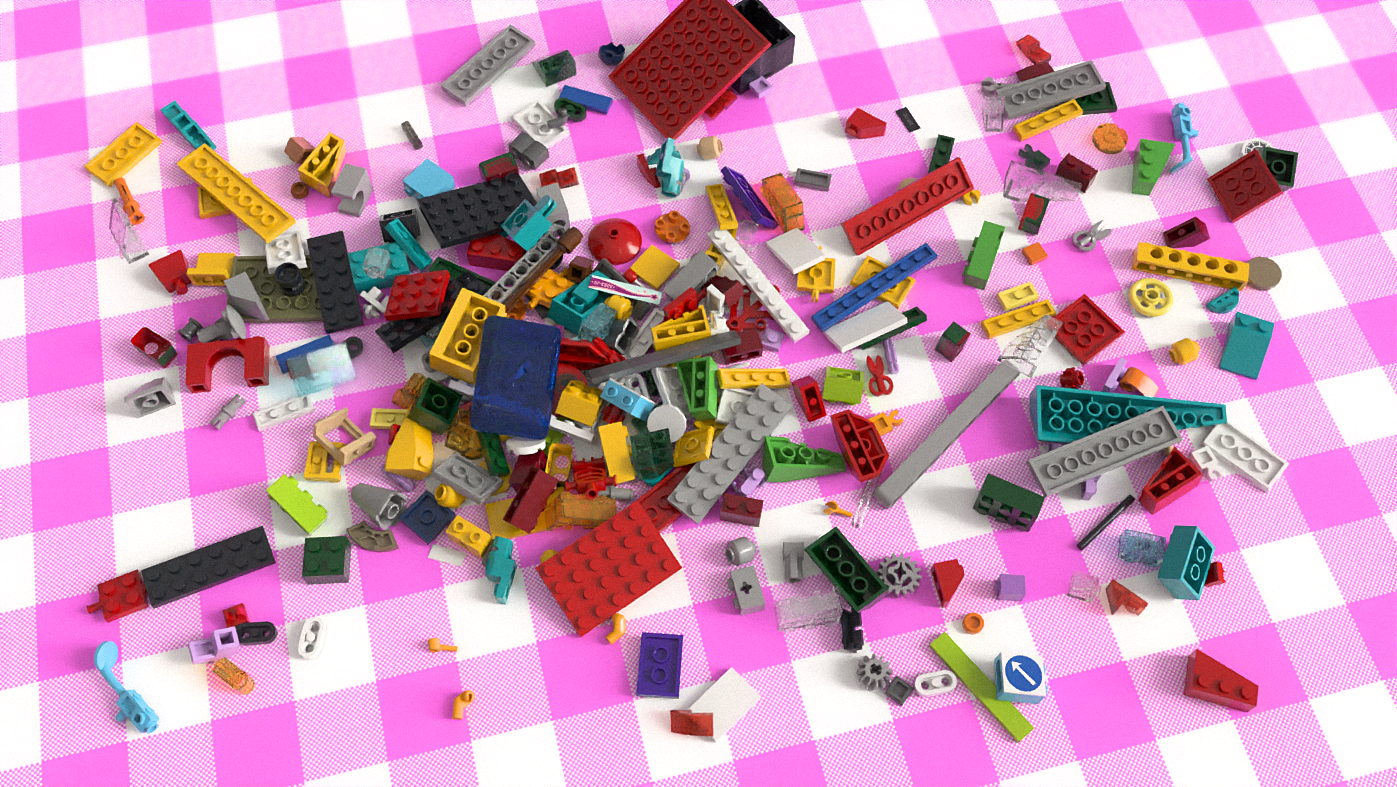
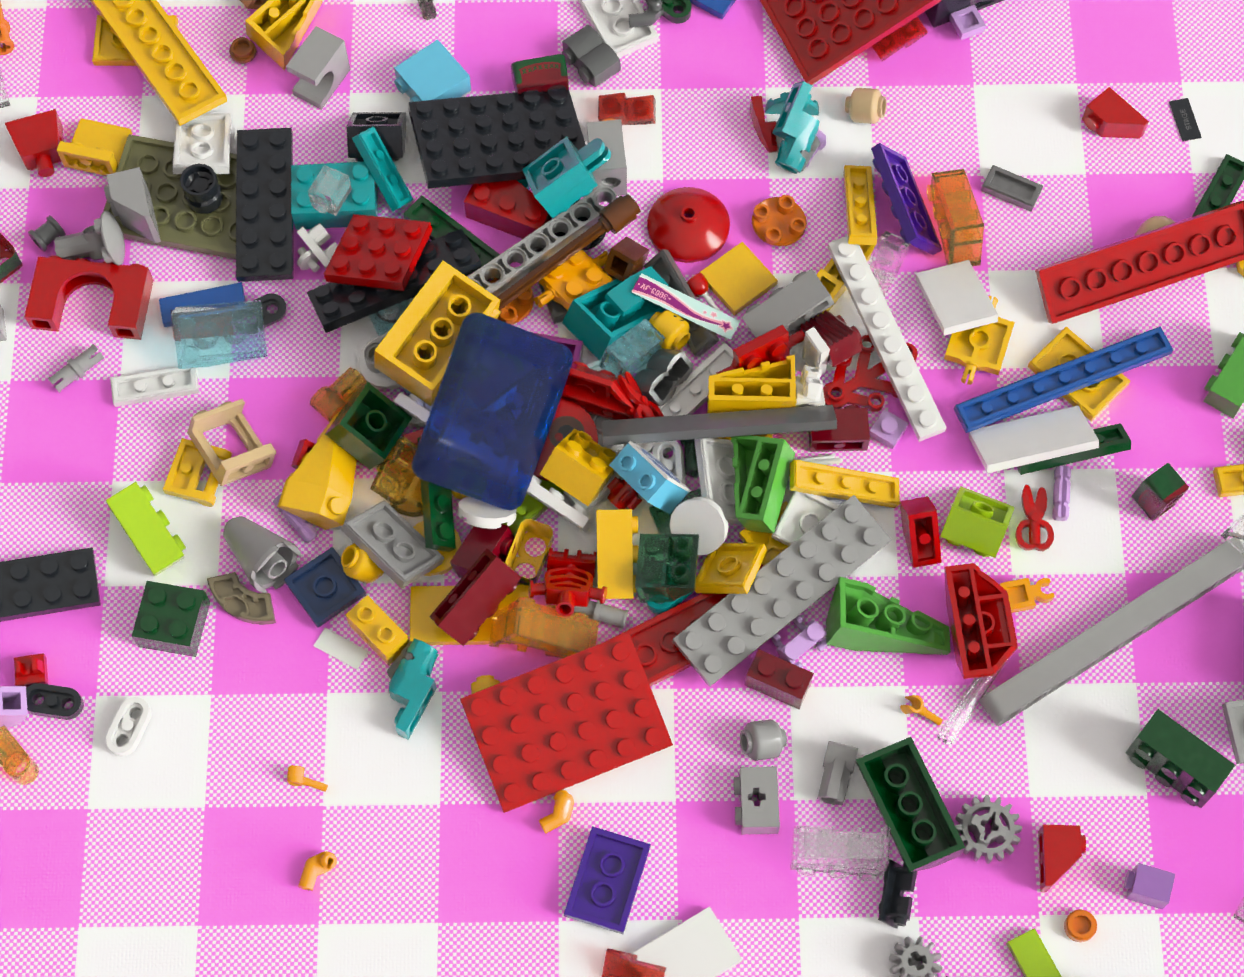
camera: 15 degrees right, 5 degrees up
(385, 418) = (296, 426): light yellow plate -> none

